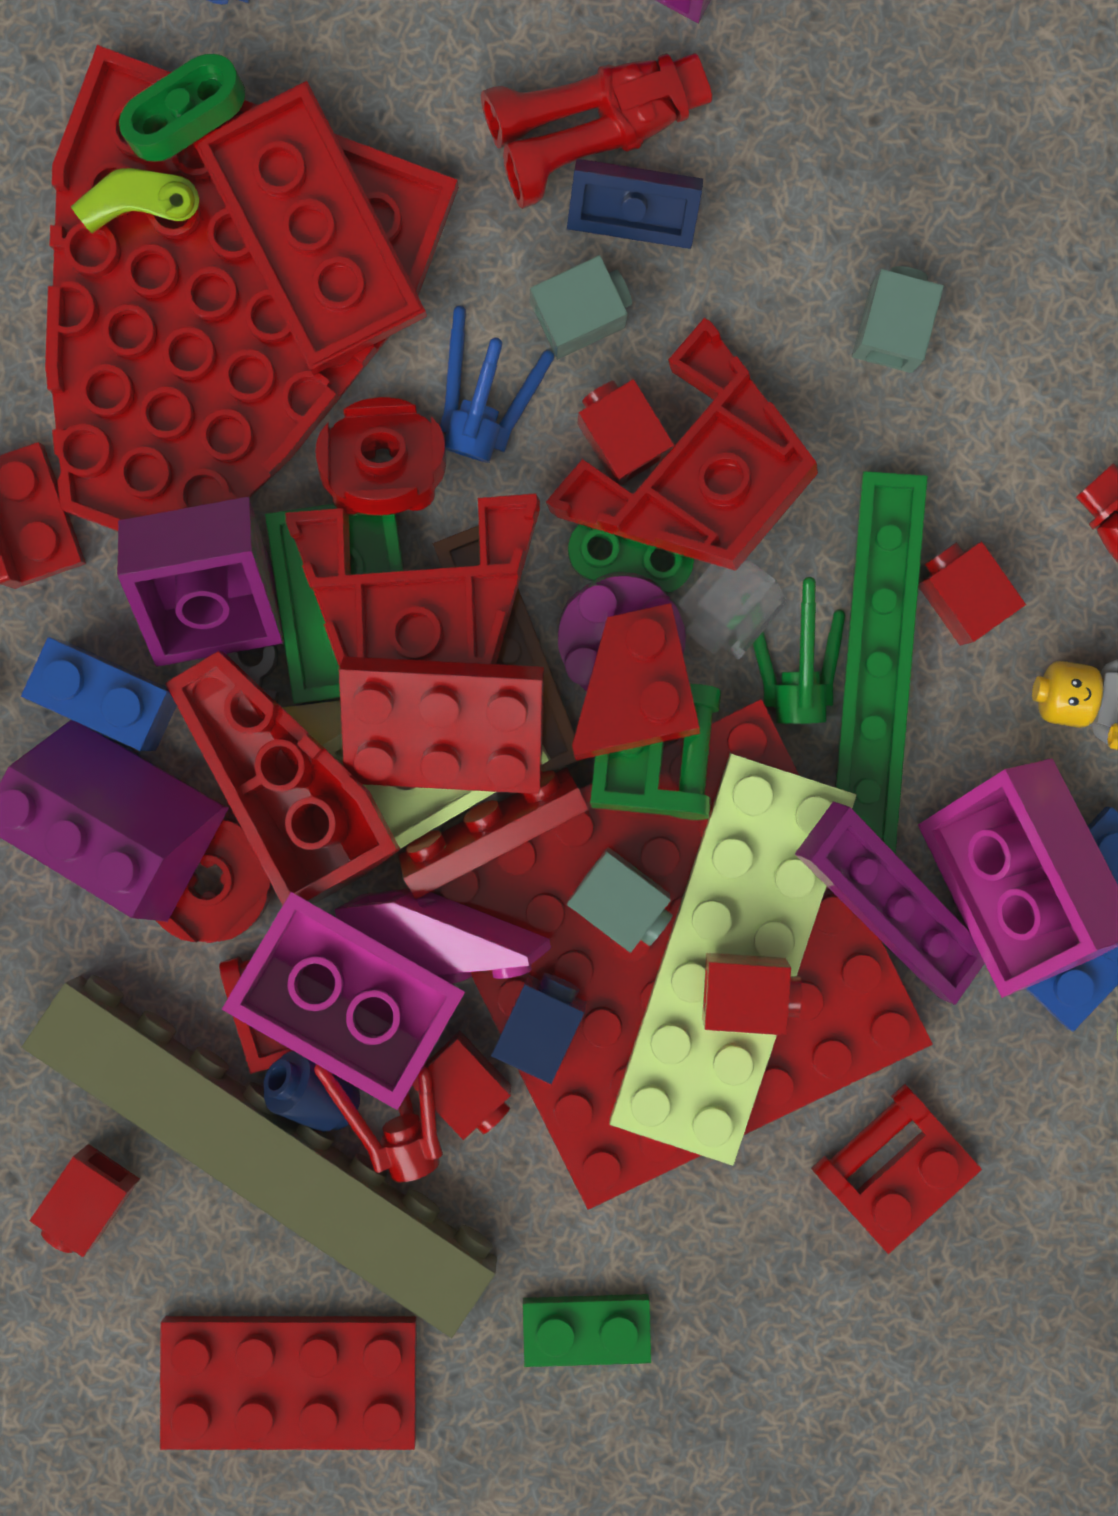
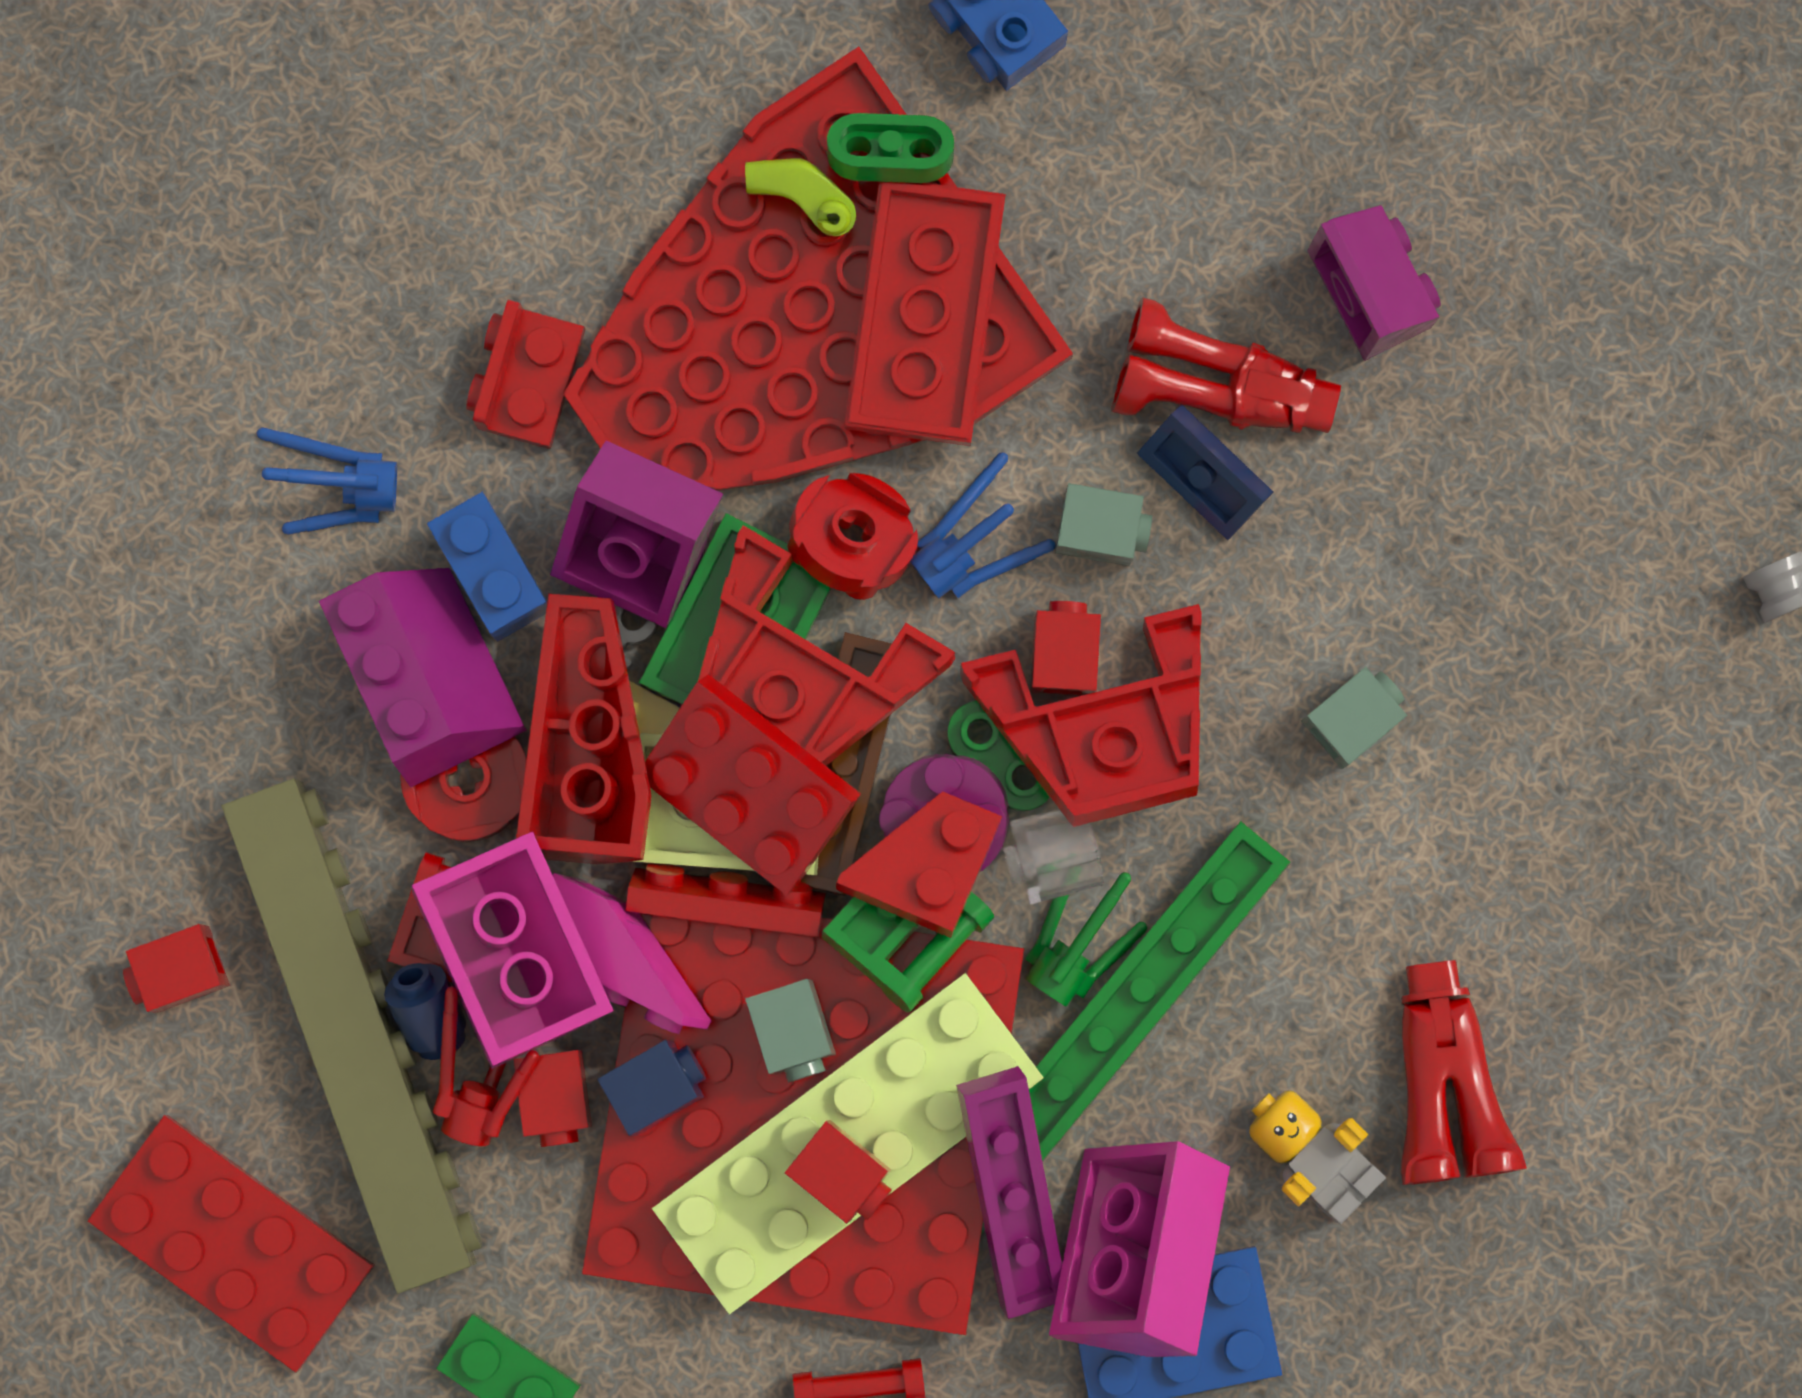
camera: 30 degrees right, 5 degrees down
(969, 591) = (1259, 981): red brick -> none

